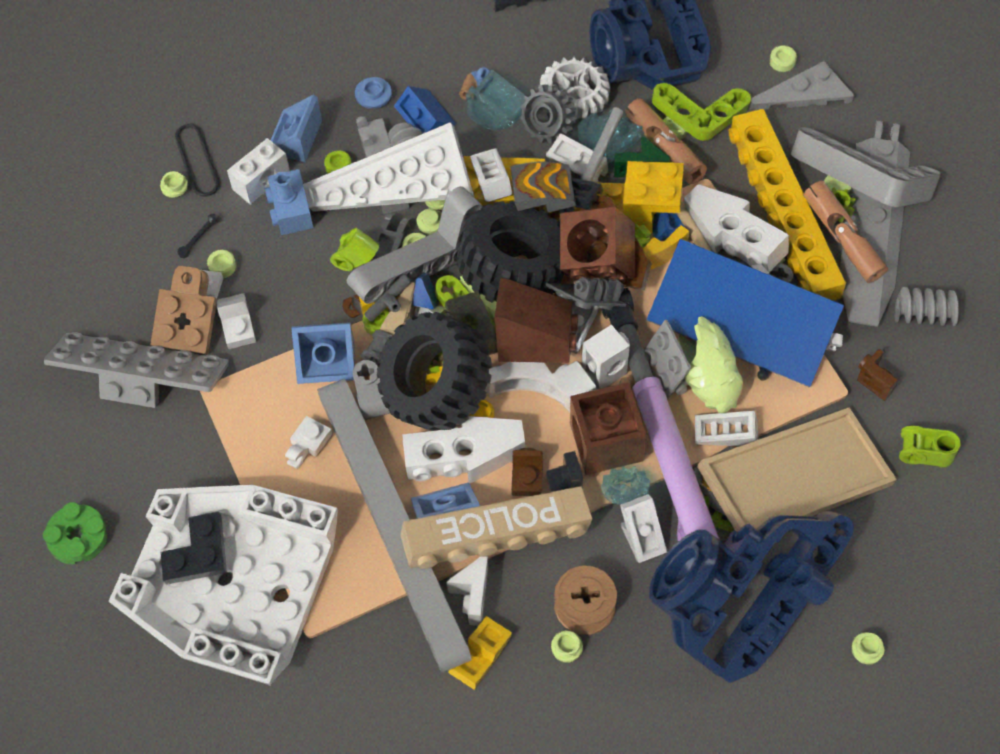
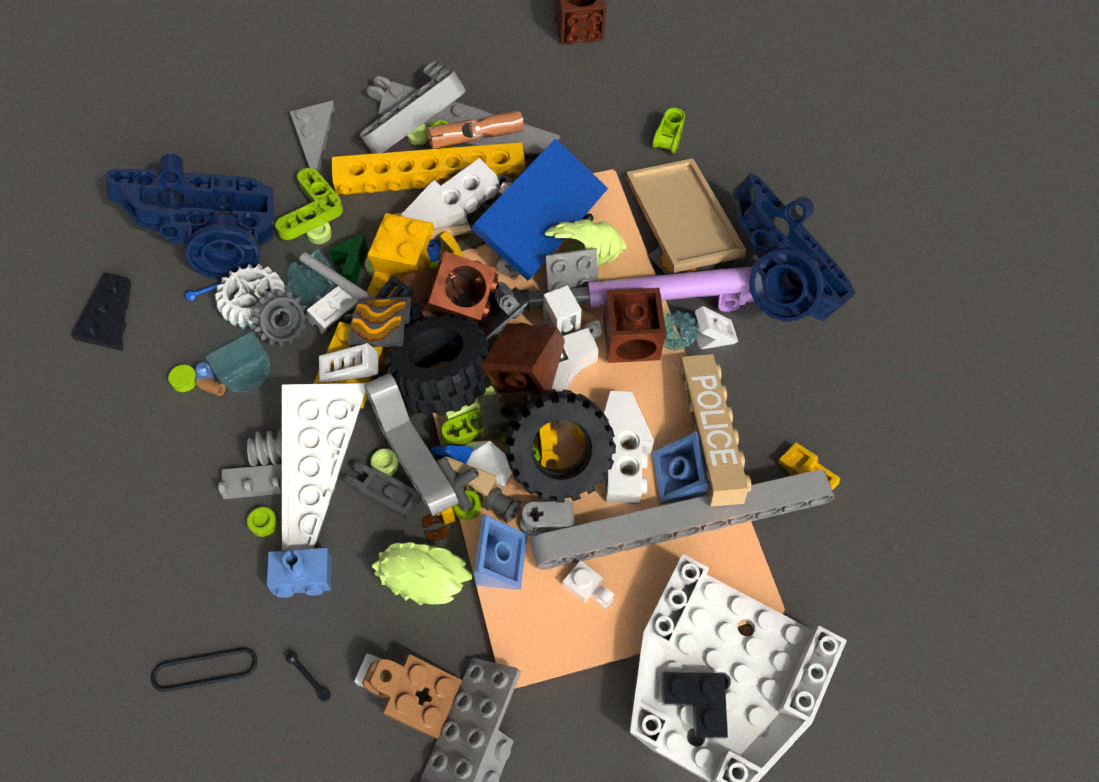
camera: 85 degrees left, 0 degrees up
(173, 184) = (234, 696): yellowish green plate -> none
(223, 262) = (351, 653): yellowish green tile -> none
(236, 321) = (427, 644): white slope -> none
(250, 173) = (250, 598): white brick -> none
(297, 291) = (421, 572): none -> yellowish green head
(298, 128) = (206, 556): medium blue slope -> none
(354, 250) = (382, 512): lime piece -> none
(373, 92) = (184, 475): medium blue piece -> none
(422, 109) = (228, 431): blue panel -> none
(429, 221) = (361, 444): yellowish green plate -> none
(472, 61) = (182, 378): none -> lime tile
(472, 584) = (763, 463): white slope -> none
(527, 472) = (654, 403): reddish brown bracket -> none
(567, 475) = (665, 369): black bracket -> none
(567, 646) = (808, 404): yellowish green plate -> none
(568, 44) = (191, 295): none -> blue hinge
(600, 592) = (785, 377): medium nougat piece -> none
(643, 115) = (363, 224): nougat piece -> none
(726, 439) = (639, 234): white slope -> none
(783, 58) = (273, 140): yellowish green tile -> none
(868, 648) = (825, 207): yellowish green plate -> none
(875, 378) = (604, 149): reddish brown bracket -> none
(927, 305) = (550, 102): light grey piece -> none

